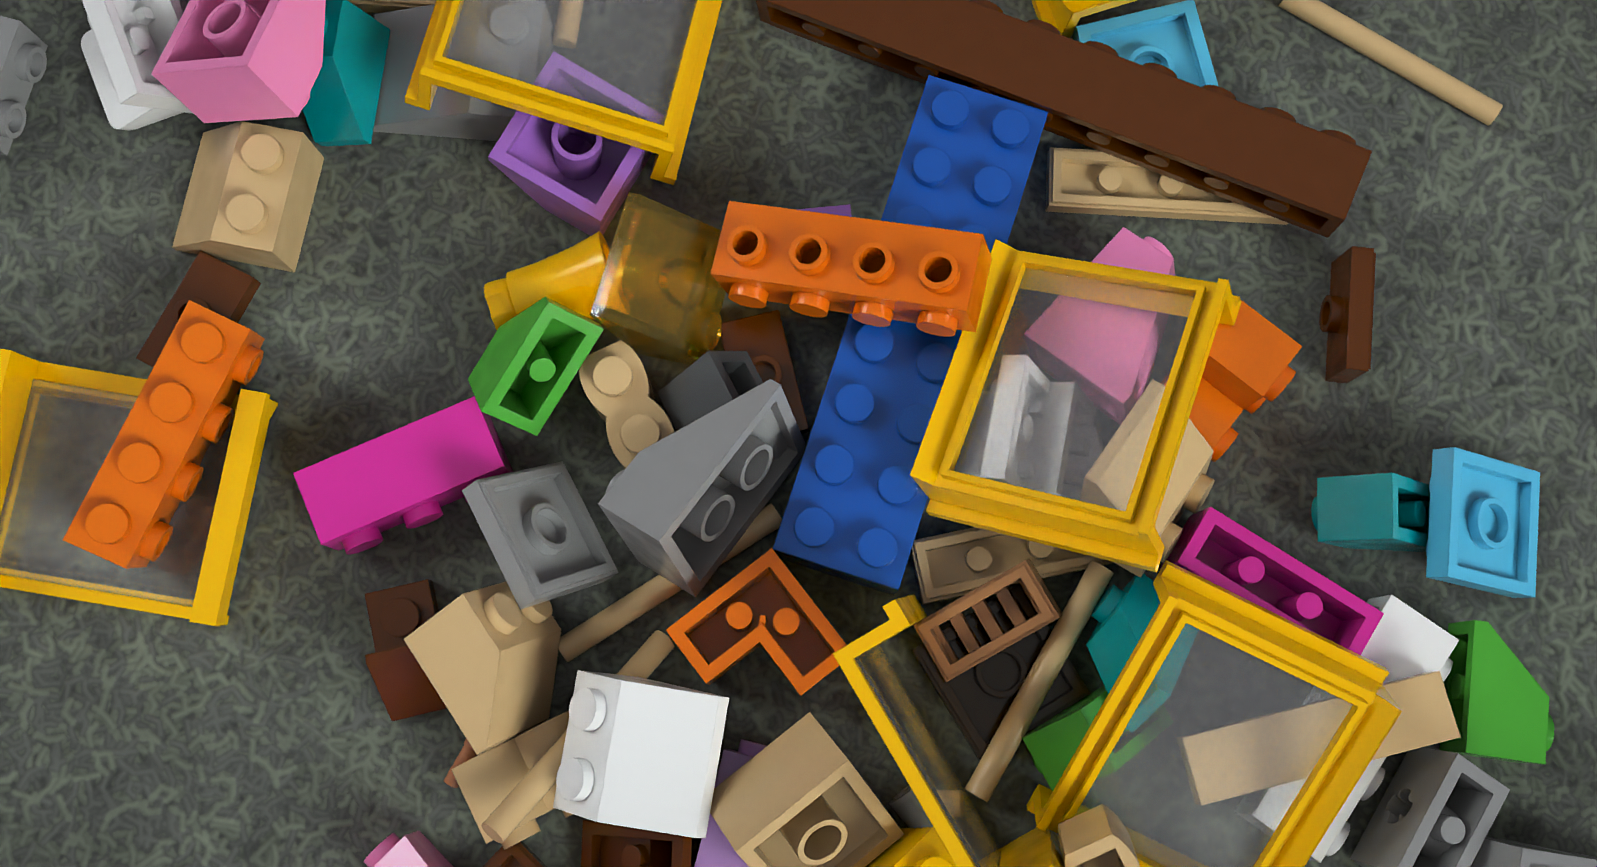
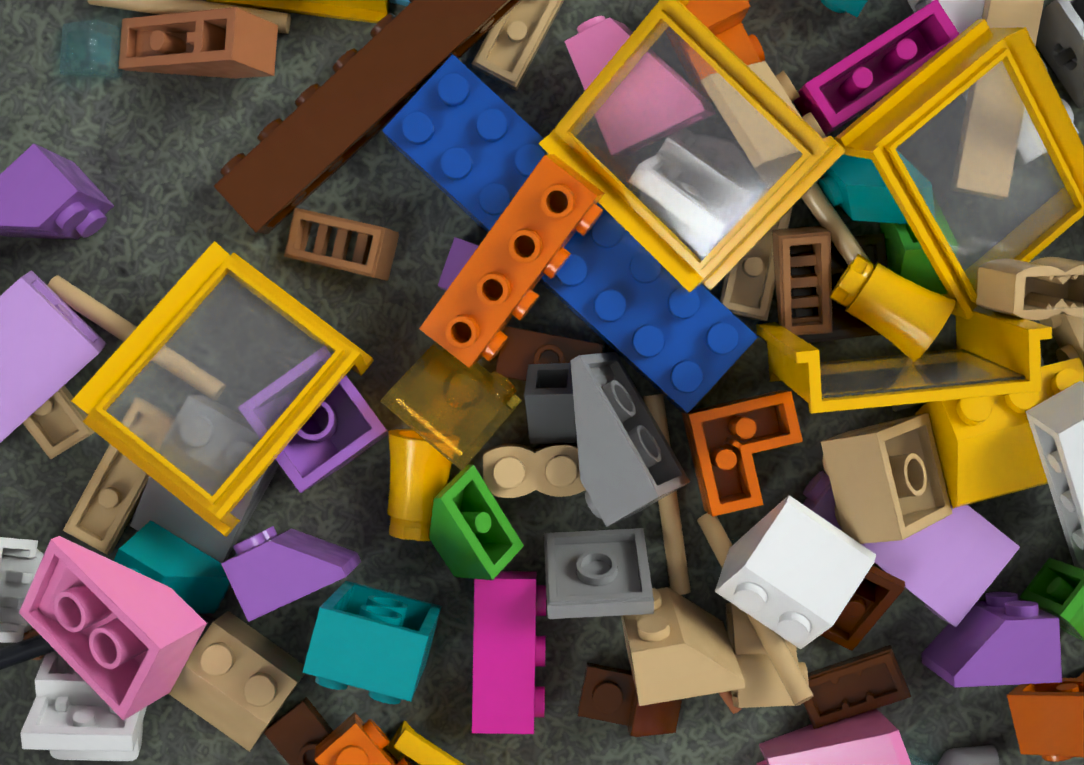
camera: 60 degrees left, 10 degrees up
(352, 306) = (372, 642): none -> teal brick
(394, 180) = (284, 567): none -> medium lavender slope
(792, 136) = (380, 254): none -> medium nougat slope
(1009, 727) = (893, 305): none -> yellow plant

